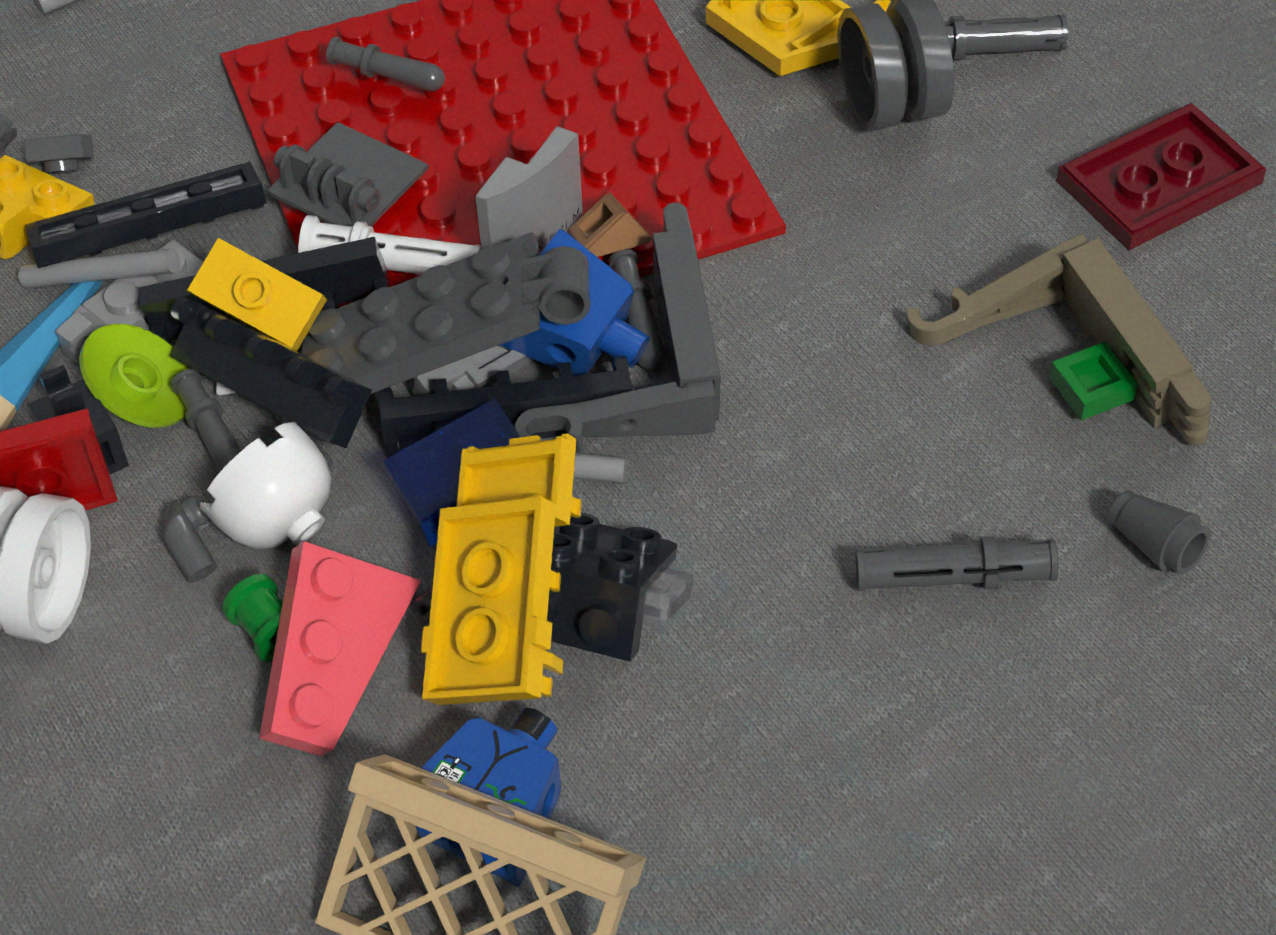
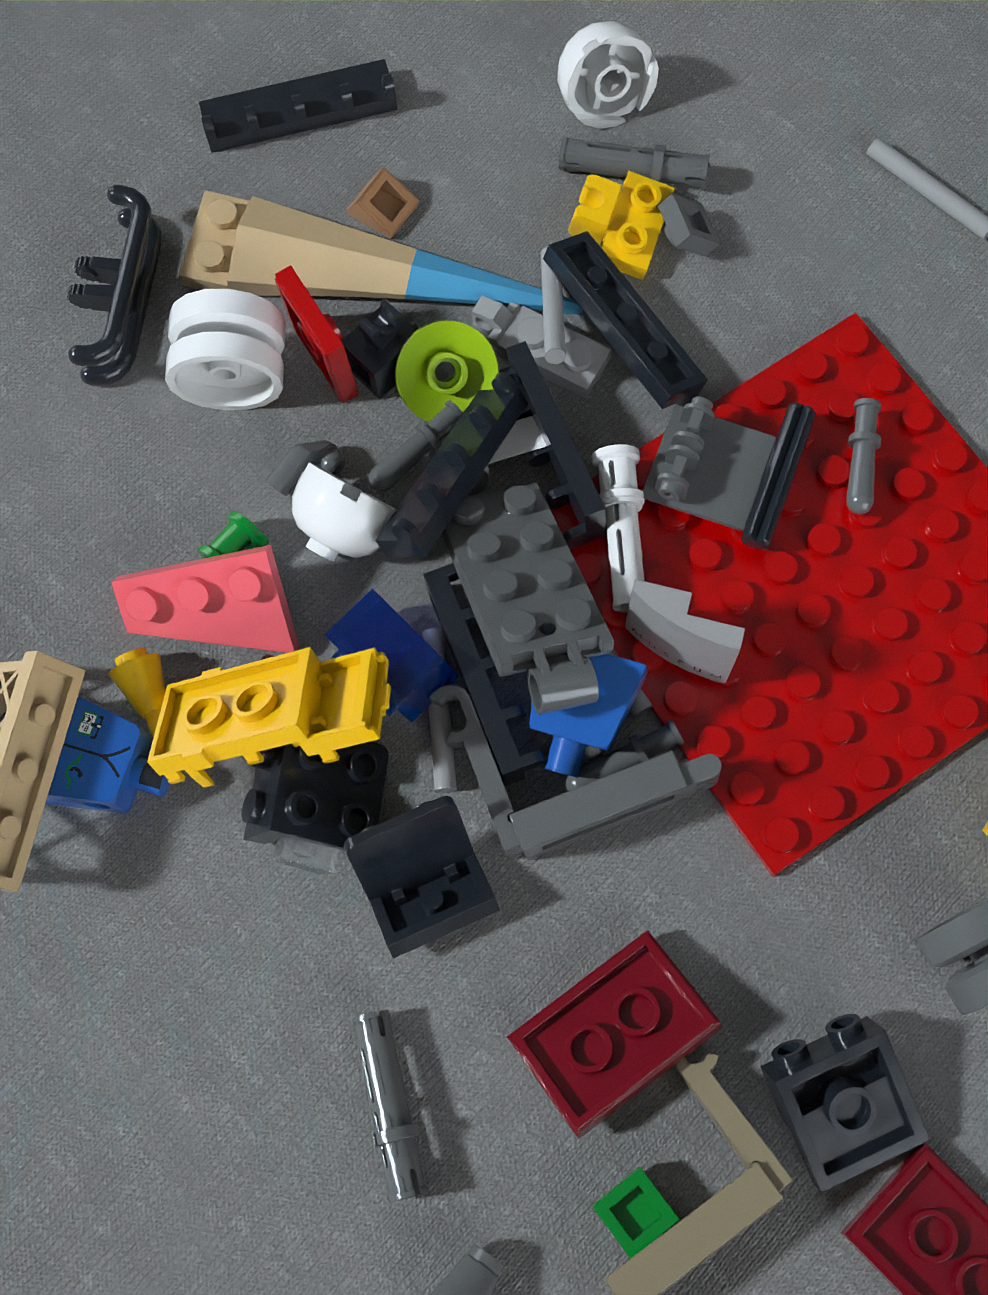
camera: 80 degrees right, 20 degrees up
(257, 294) = (525, 434): yellow plate -> none
(336, 107) = (778, 476): none -> black axle
(408, 733) = (141, 682): none -> yellow cone
(608, 228) = (700, 711): medium nougat slope -> none
(727, 488) = (421, 875): none -> black bracket
(918, 365) = (614, 1033): none -> dark red tile
(1007, 205) = (844, 1100): none -> black plate

